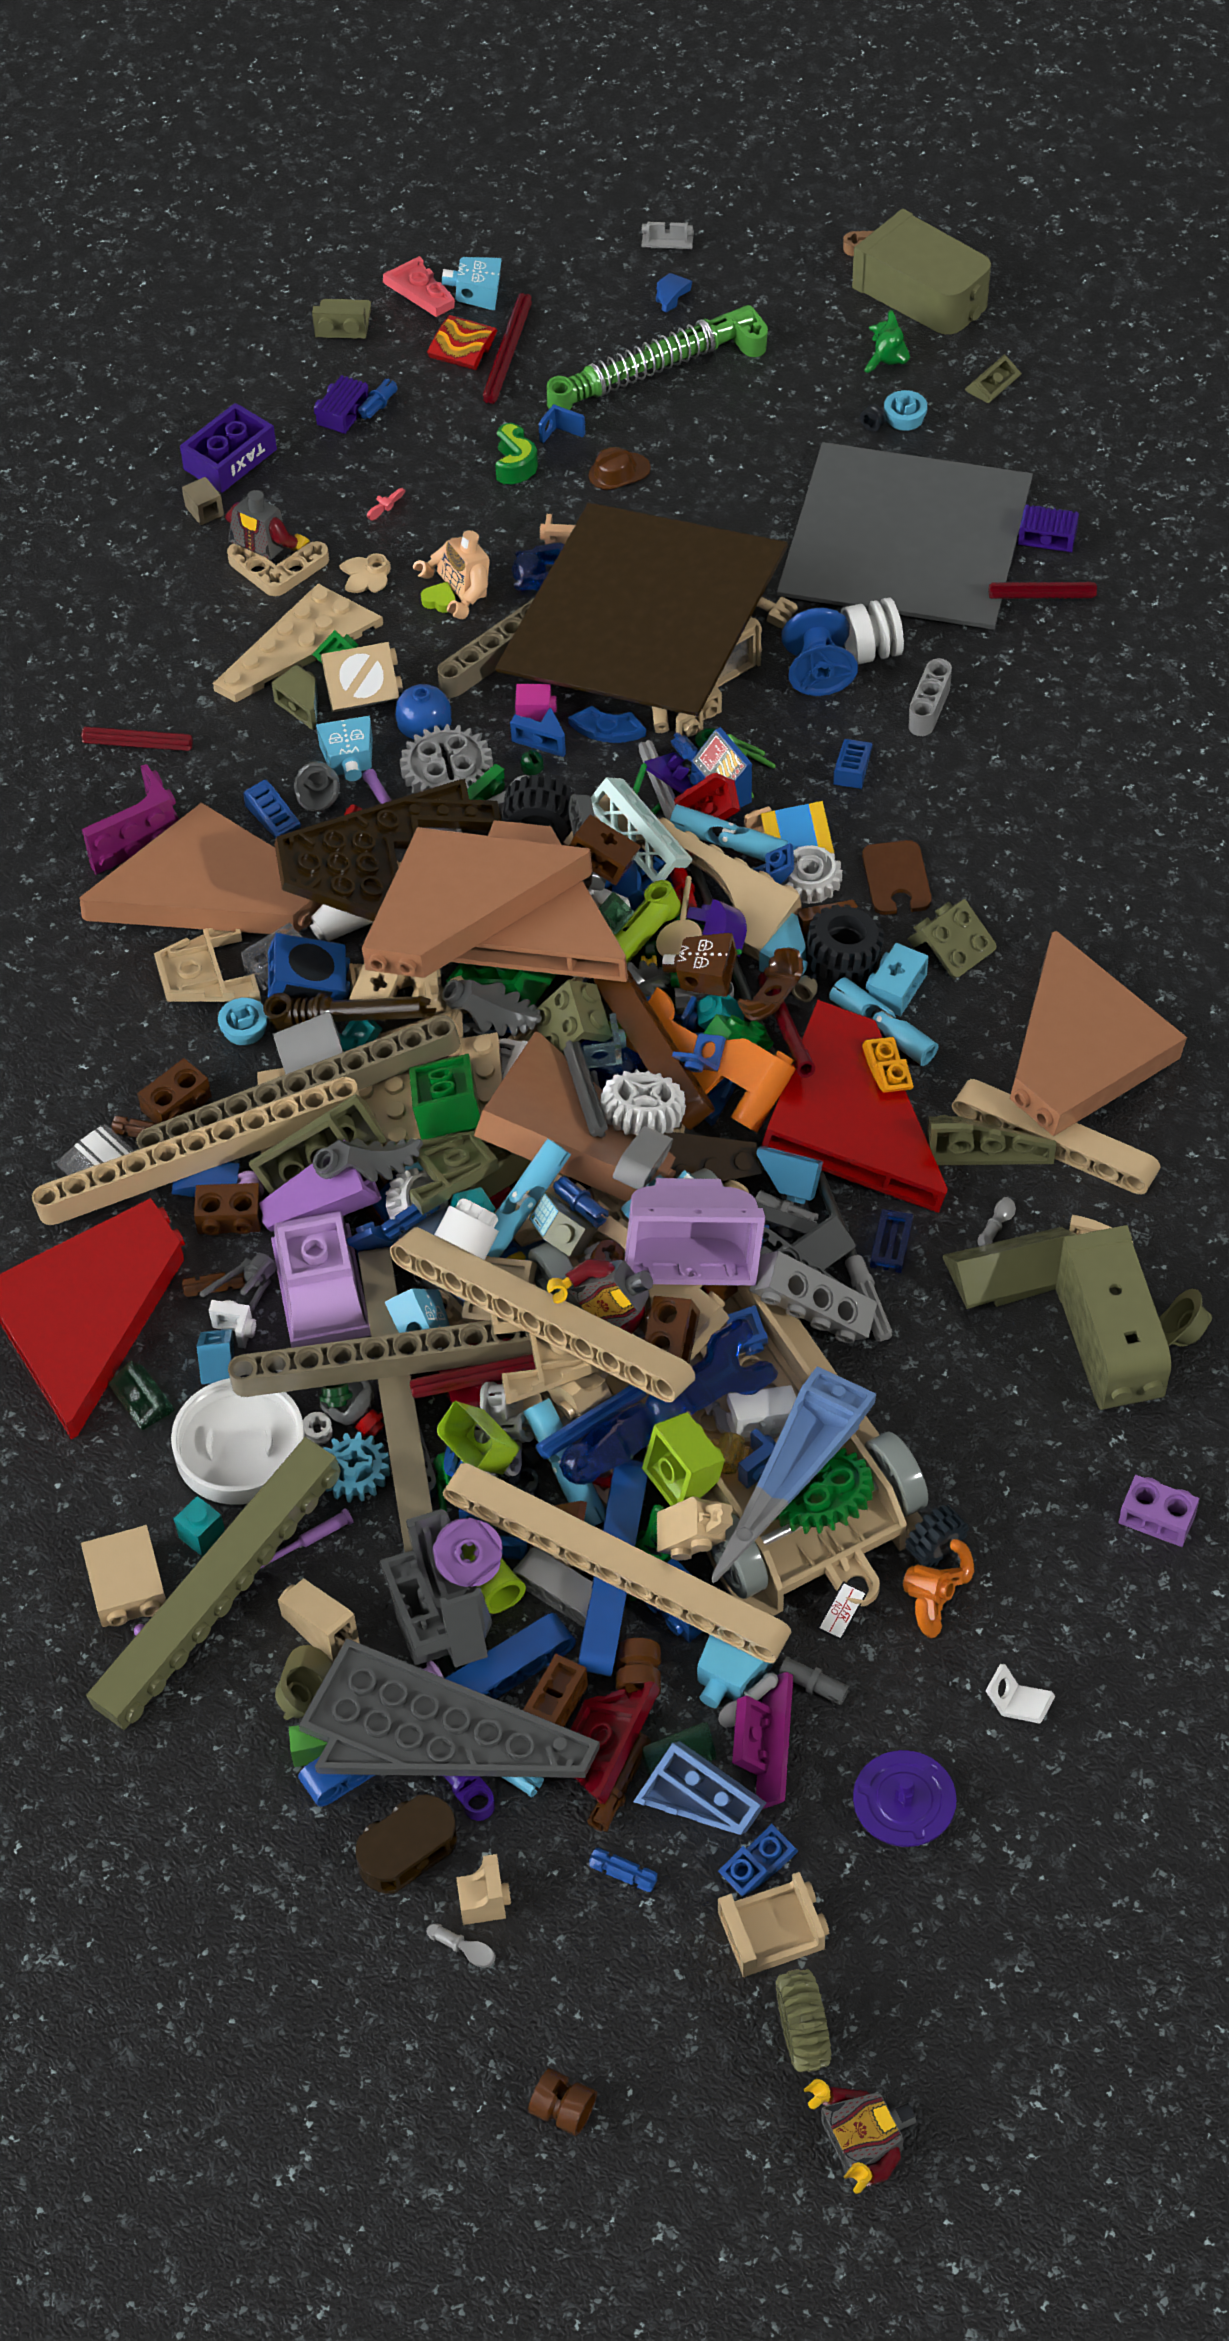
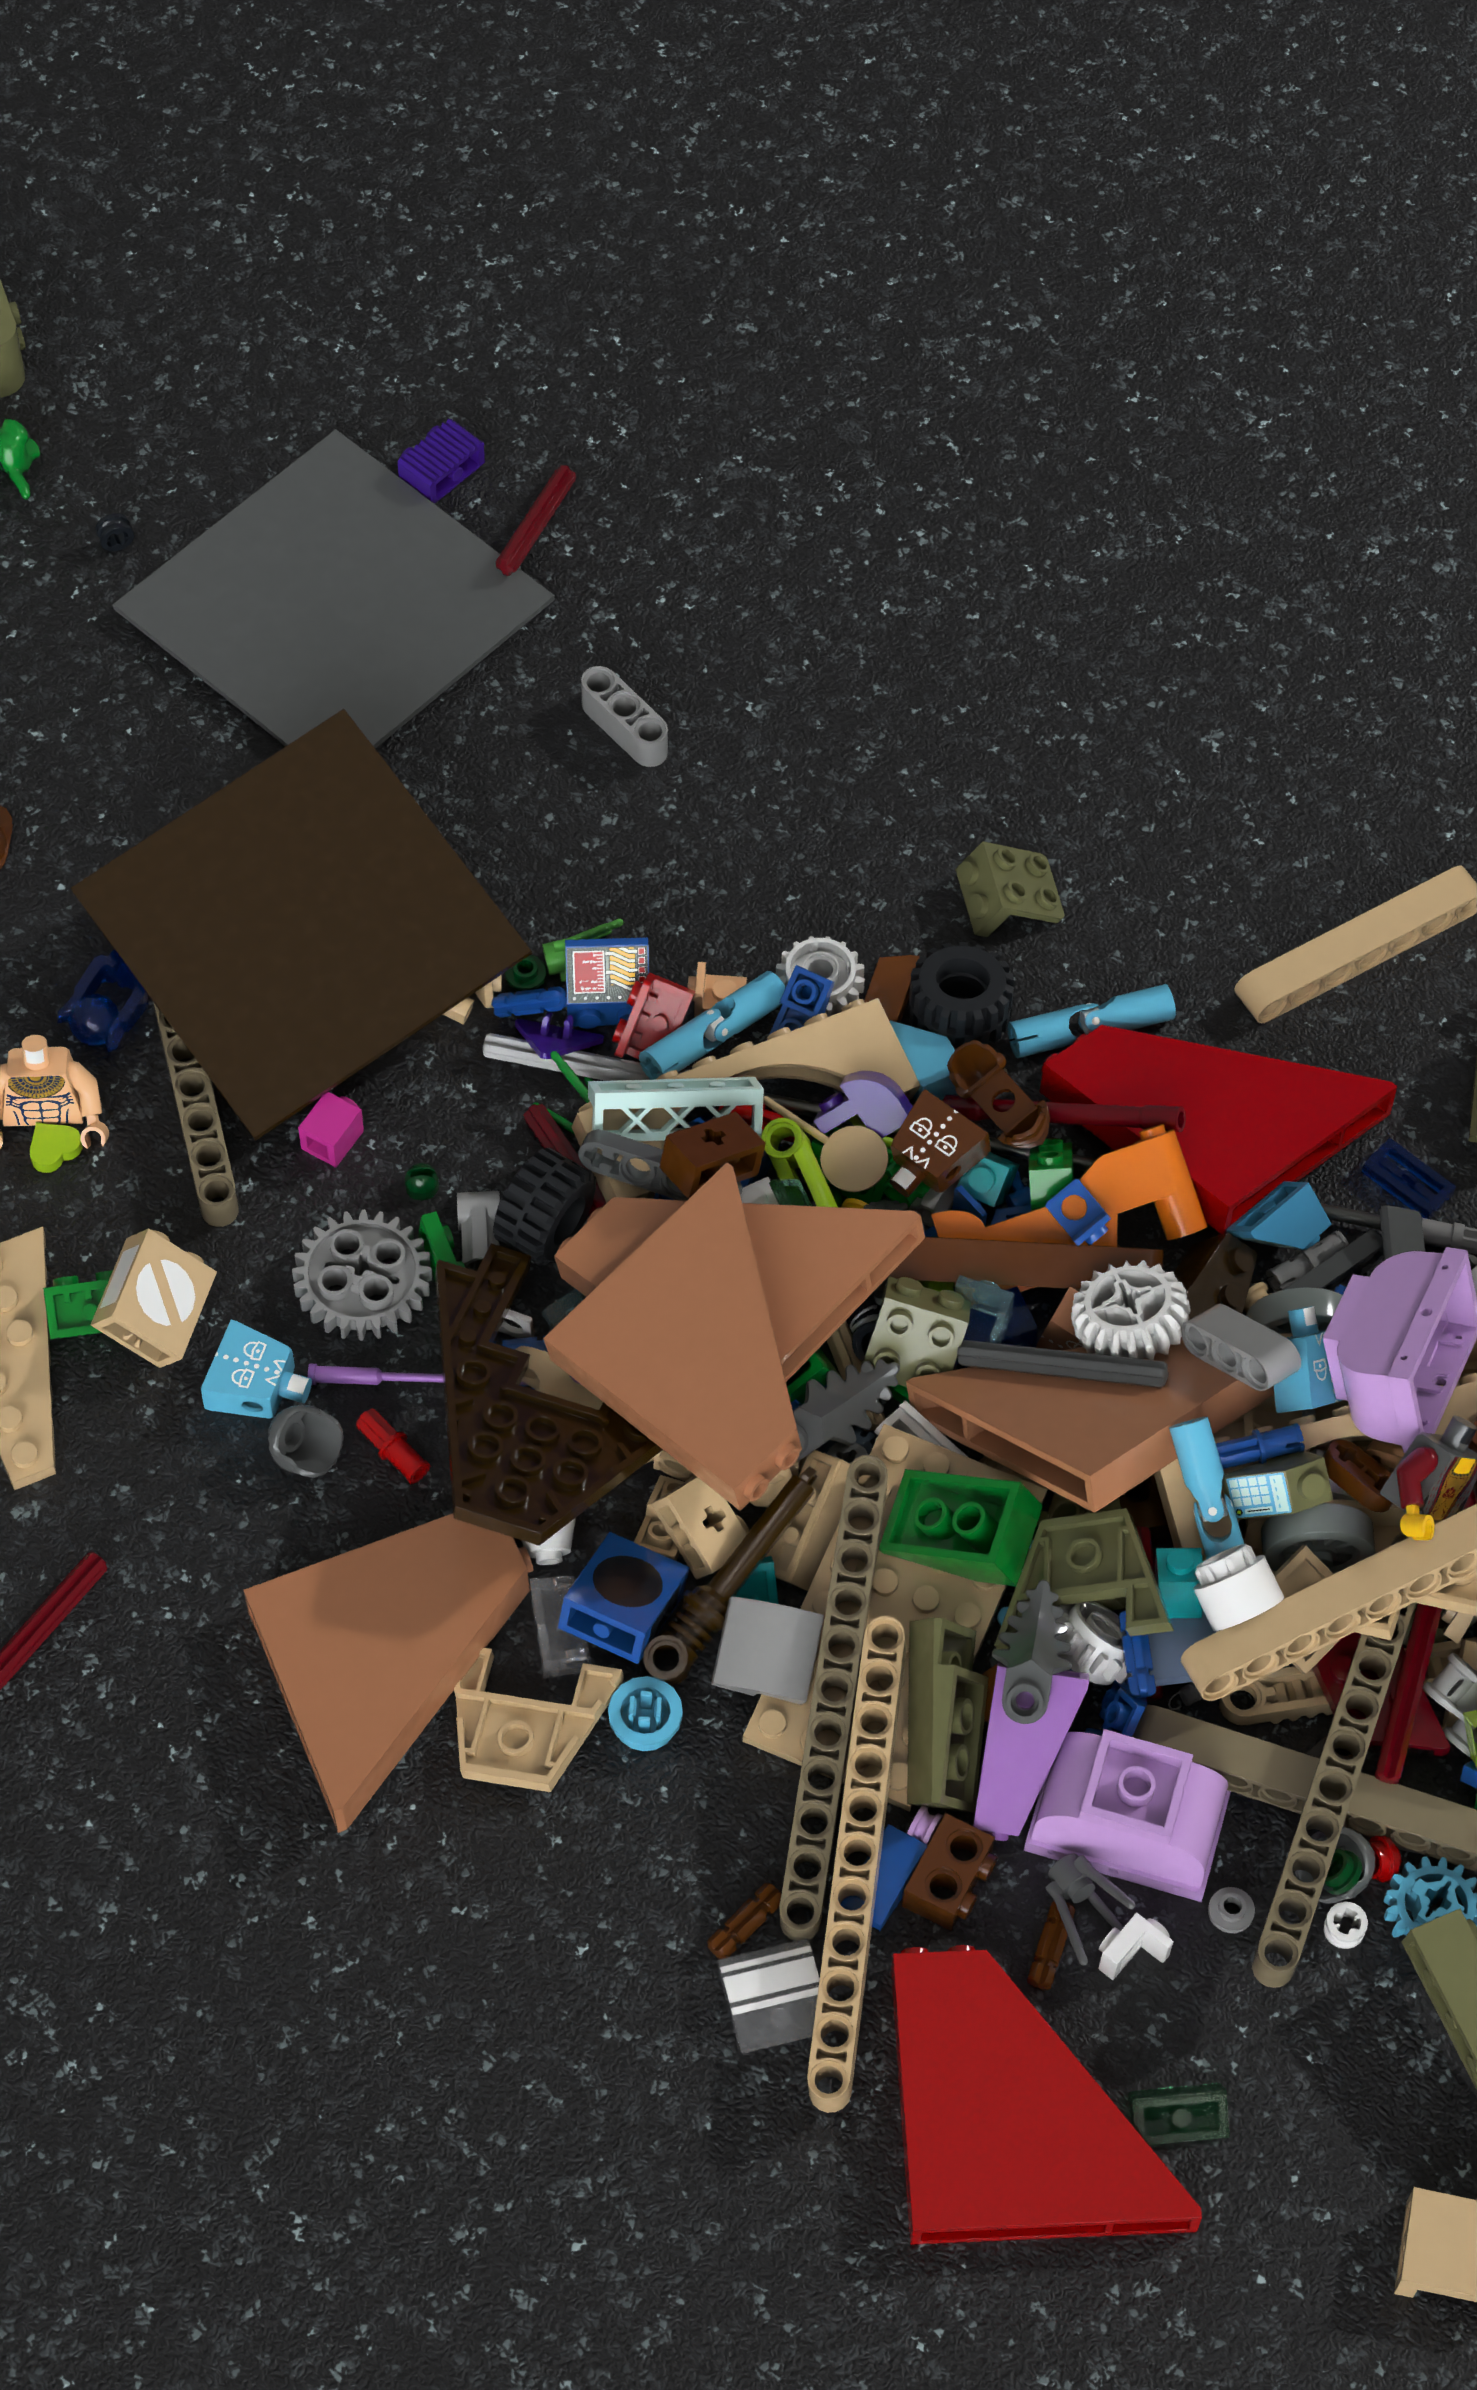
camera: 65 degrees left, 5 degrees up
(130, 830) = (225, 1646): magenta bracket -> none
(174, 1092) = (713, 1854): reddish brown brick -> none
(199, 1526) = (1435, 2127): teal brick -> none
(214, 1353) = (1177, 1989): dark azure slope -> none
(232, 1442) = (1333, 2034): white brick -> none
(262, 795) = (280, 1503): blue slope -> none
(298, 694) = (120, 1387): olive slope -> none
(417, 1310) = (1280, 1720): medium azure torso -> none
(421, 709) = (250, 1260): blue cylinder -> none
(539, 735) = (394, 1141): blue slope -> none
(554, 533) = (57, 962): light nougat bracket -> none
(607, 727) = (419, 1071): blue tile -> none
(800, 825) = (745, 950): sticker -> none
(820, 659) = (490, 782): blue piece -> none
(848, 776) = (676, 868): blue slope -> none
(873, 630) = (490, 714): white wheel -> none
(886, 1066) = (1195, 1048): light orange slope -> none
(893, 870) = (864, 894): reddish brown piece -> none
(898, 977) = (1041, 972): medium azure brick -> none
(905, 410) = (128, 491): medium azure piece -> none
(972, 1142) = (1324, 1023): olive wedge -> none
(994, 380) = (140, 384): olive slope -> none
(1003, 1211) = (1435, 1053): light grey piece -> none
(1086, 1041) = (1253, 837): nougat slope -> none

